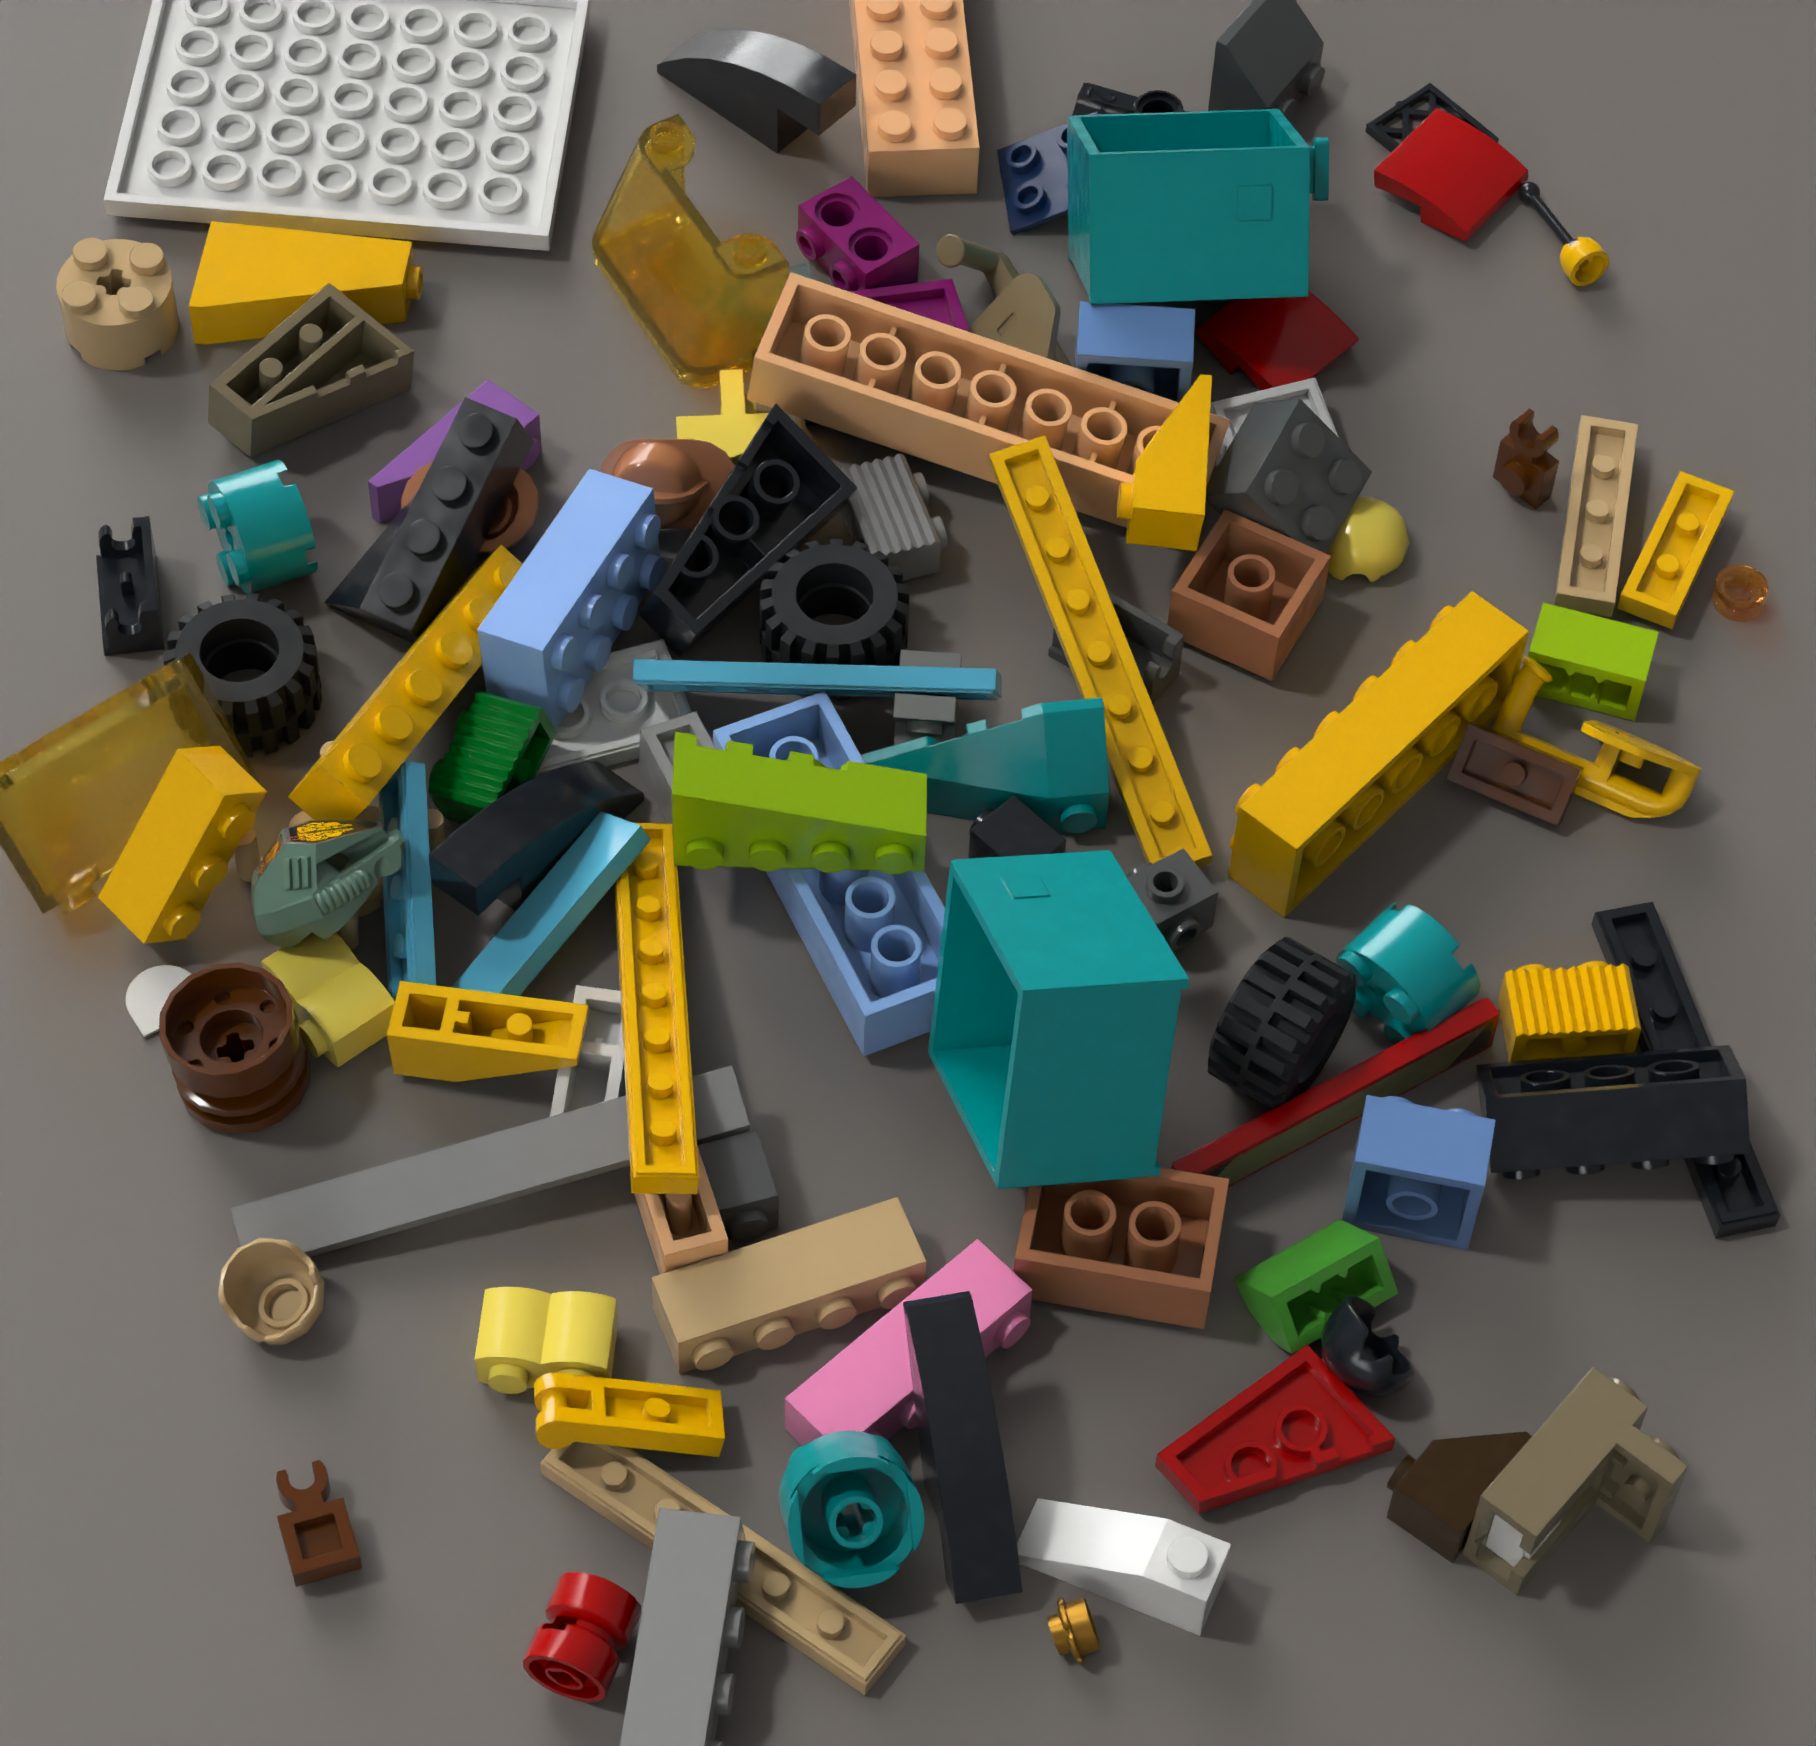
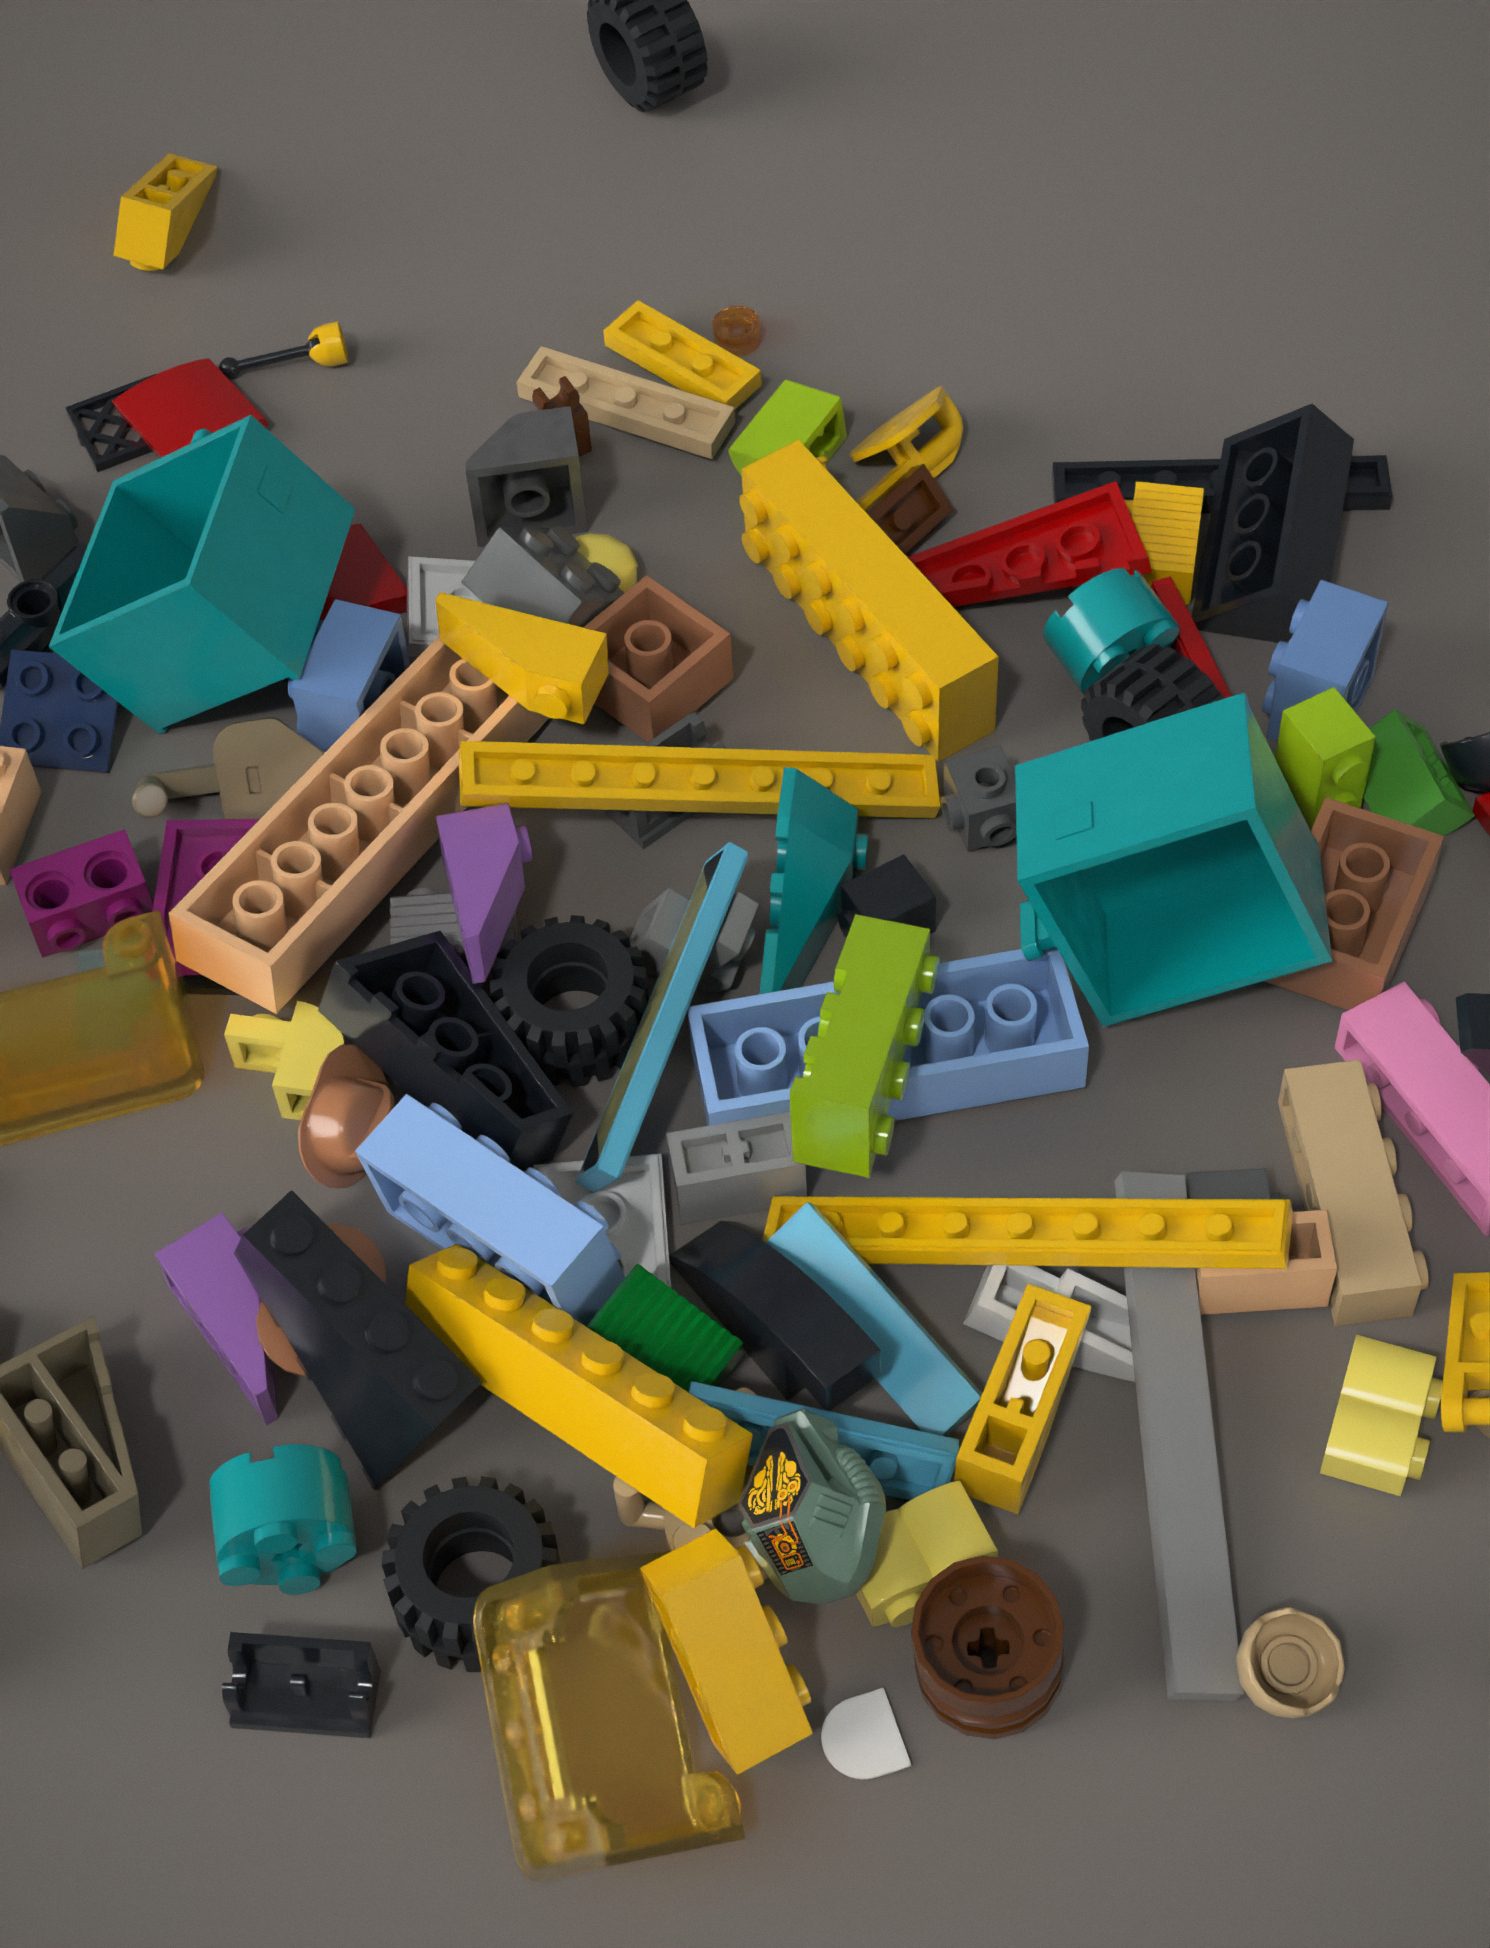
camera: 70 degrees left, 0 degrees up
(912, 504) = (484, 877): none -> medium lavender slope
(1293, 1182) = (1324, 752): none -> lime brick
(1440, 445) = (528, 476): none -> flat silver slope
(1497, 893) = (1038, 550): none -> red wing
(1704, 79) = (161, 211): none -> yellow slope

